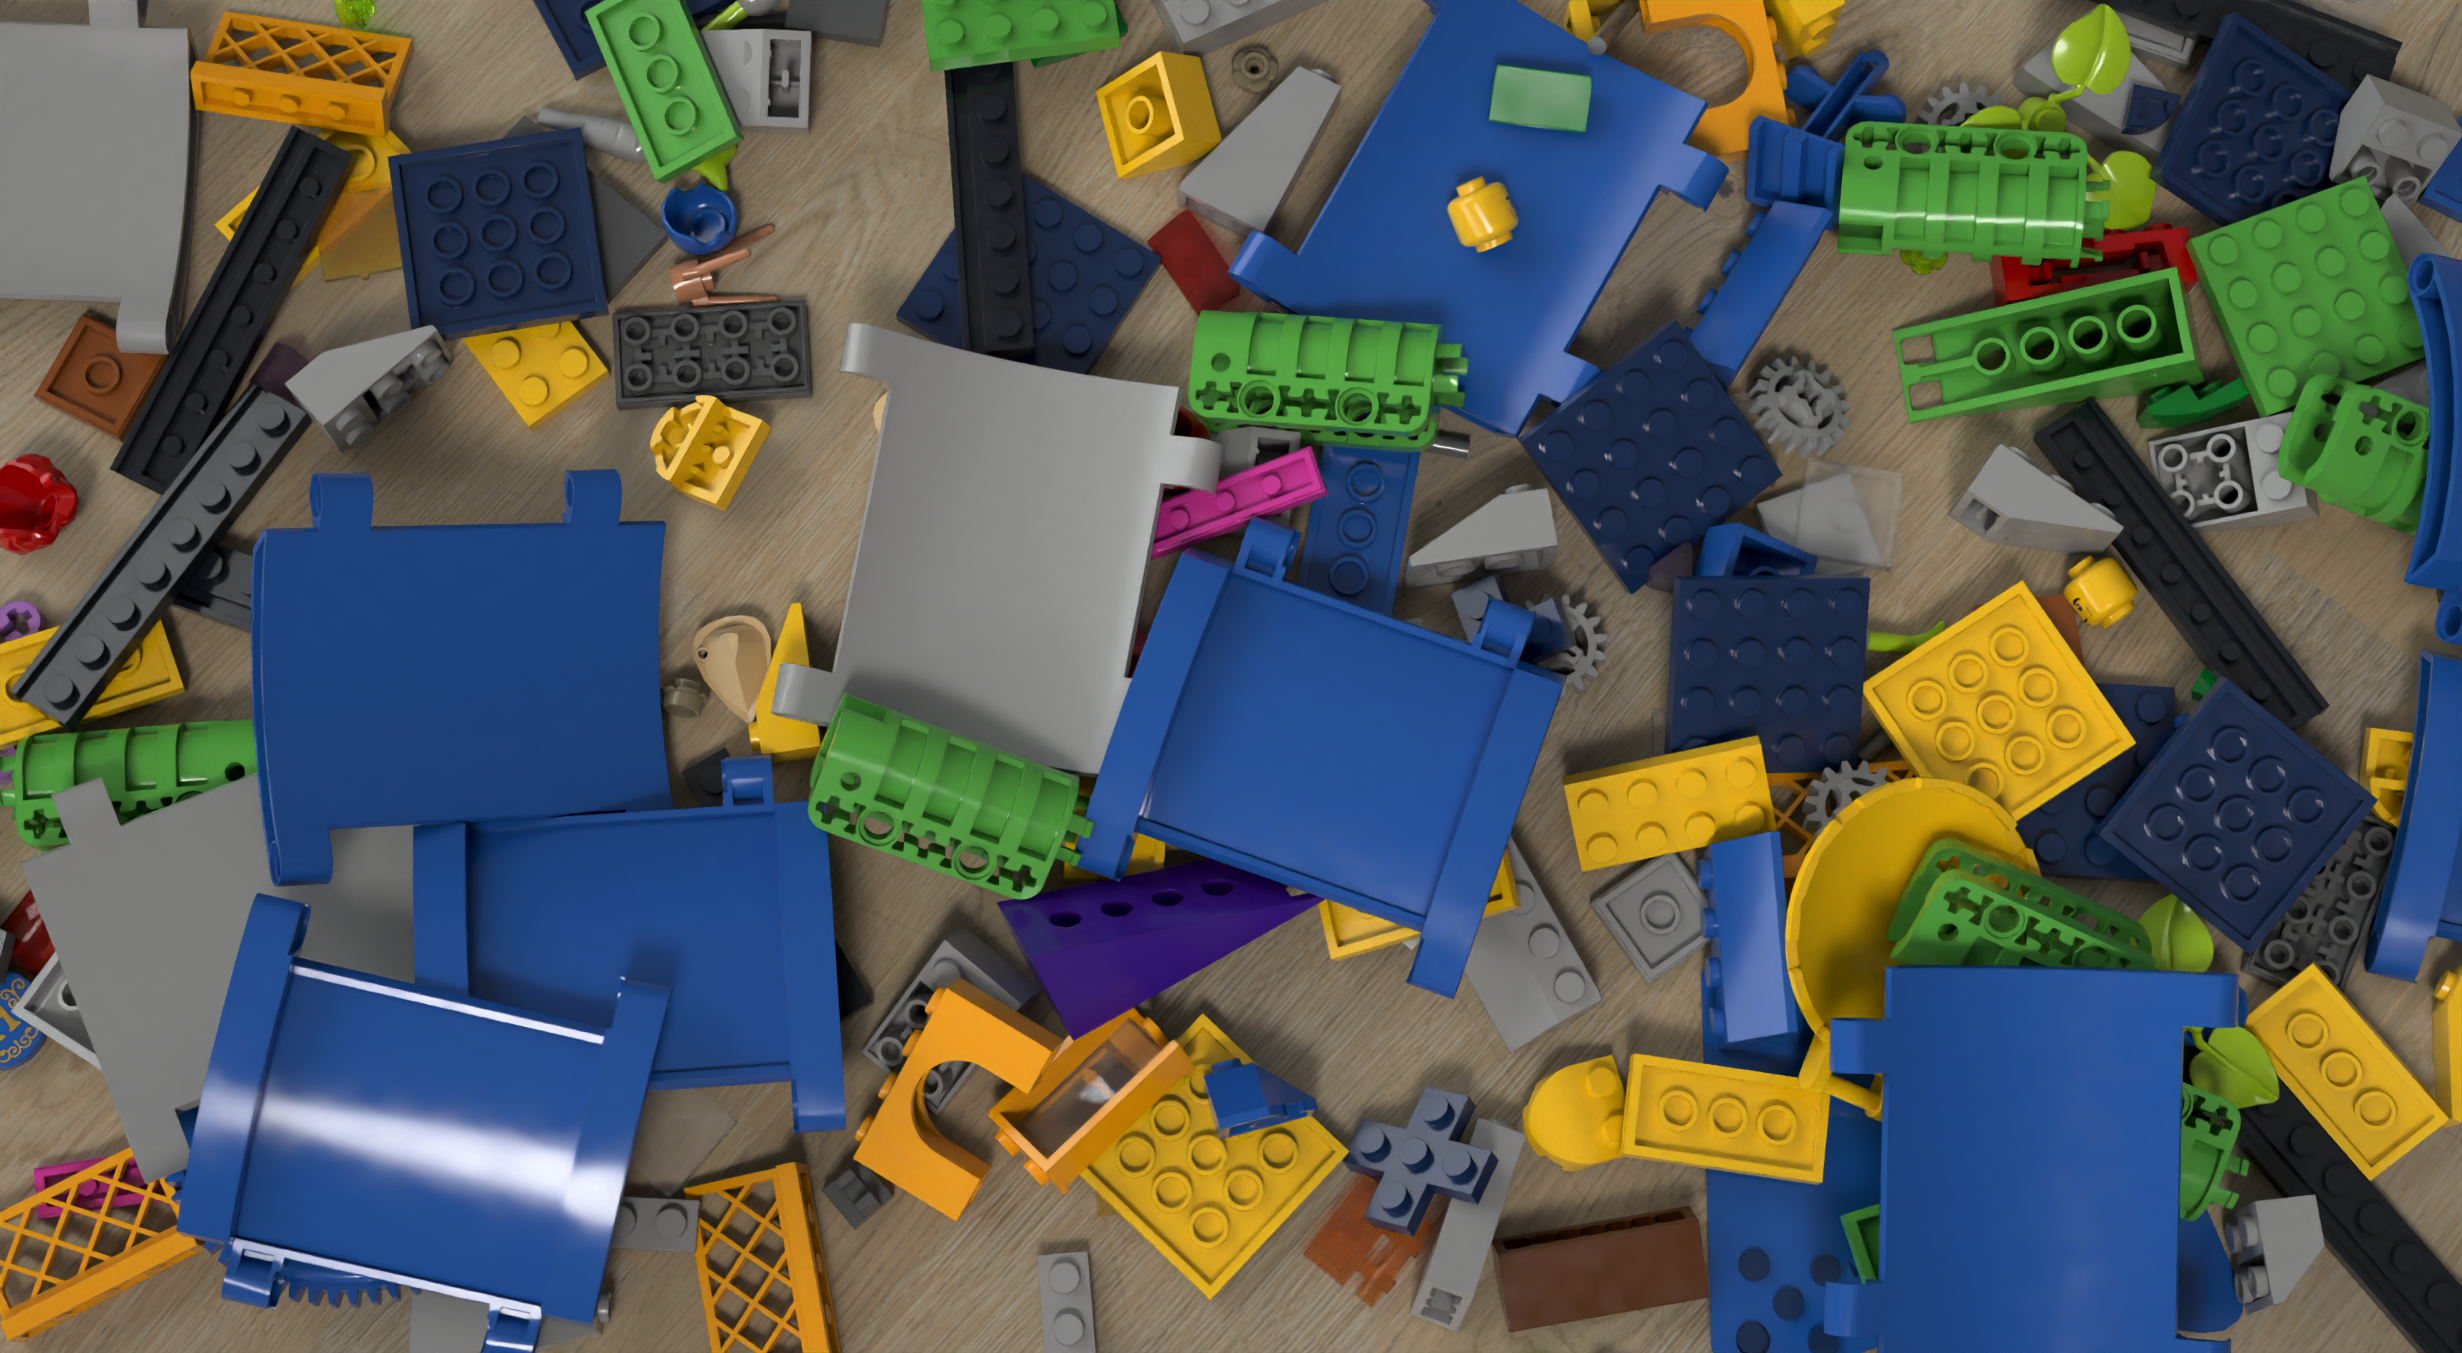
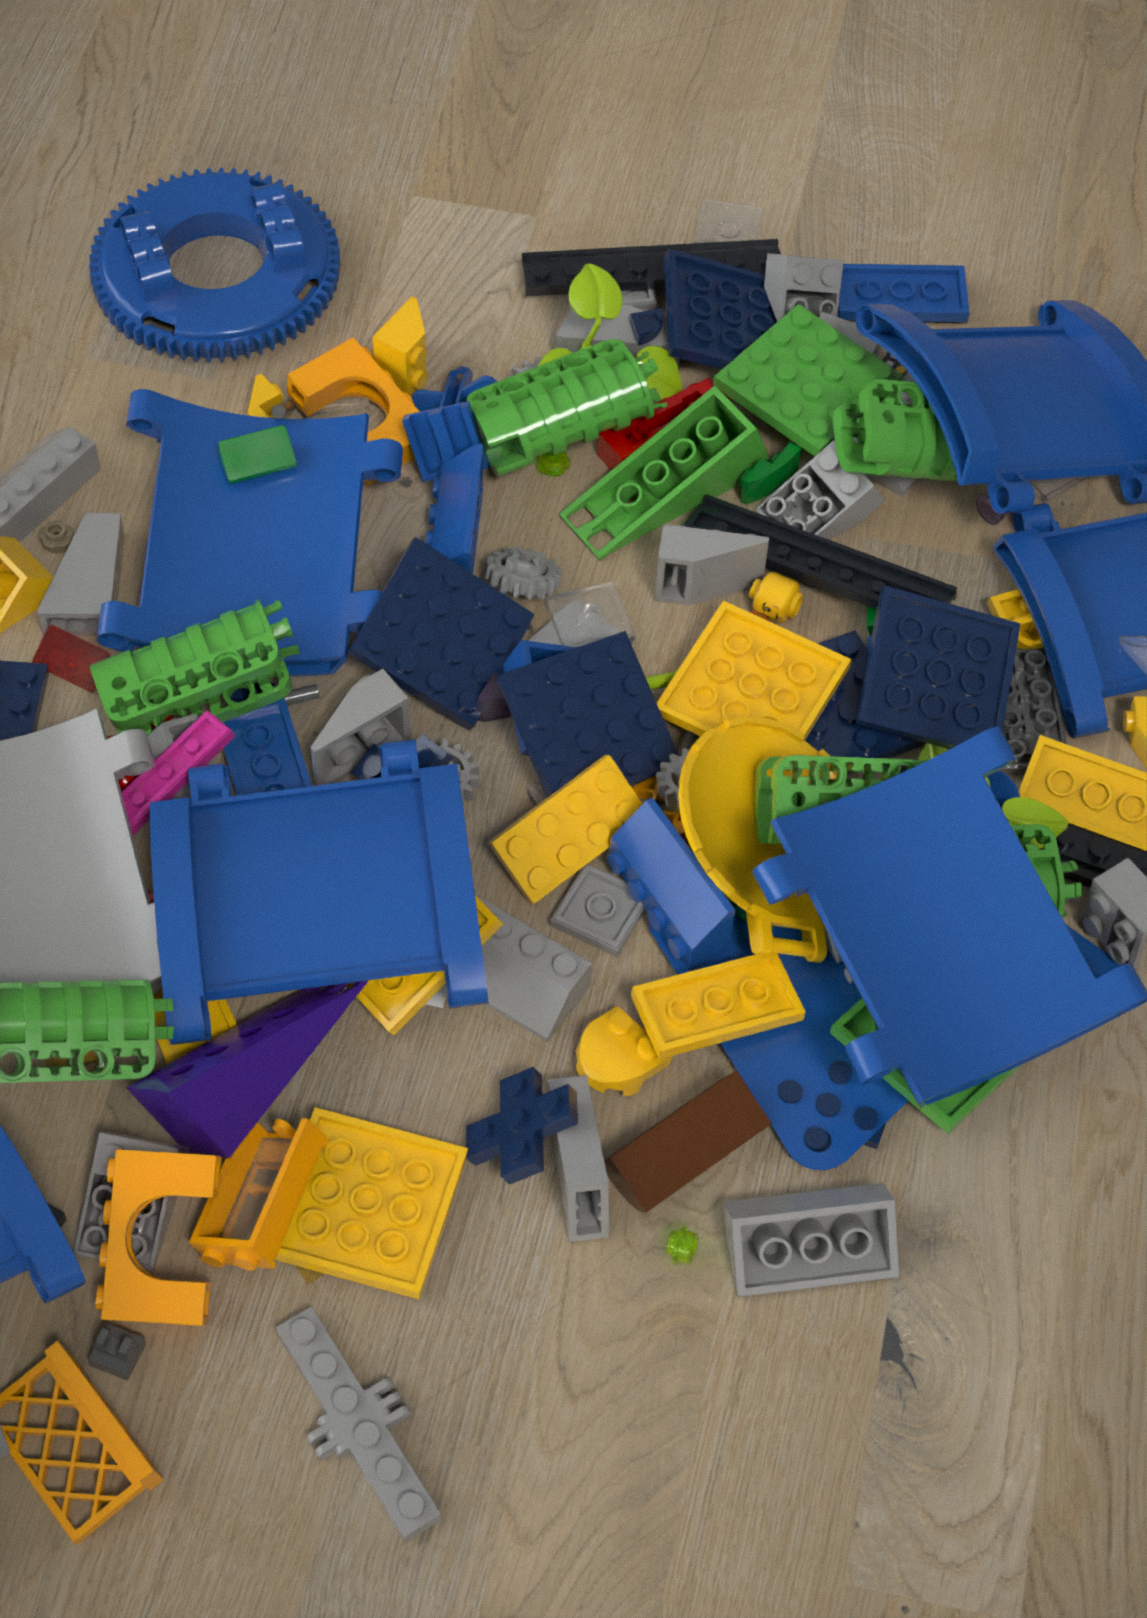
camera: 25 degrees left, 20 degrees down
(1252, 1099) = (381, 1139): blue slope -> none
(1349, 1237) = (499, 1205): clear orange plate -> none
(1482, 214) = (253, 535): yellow head -> none

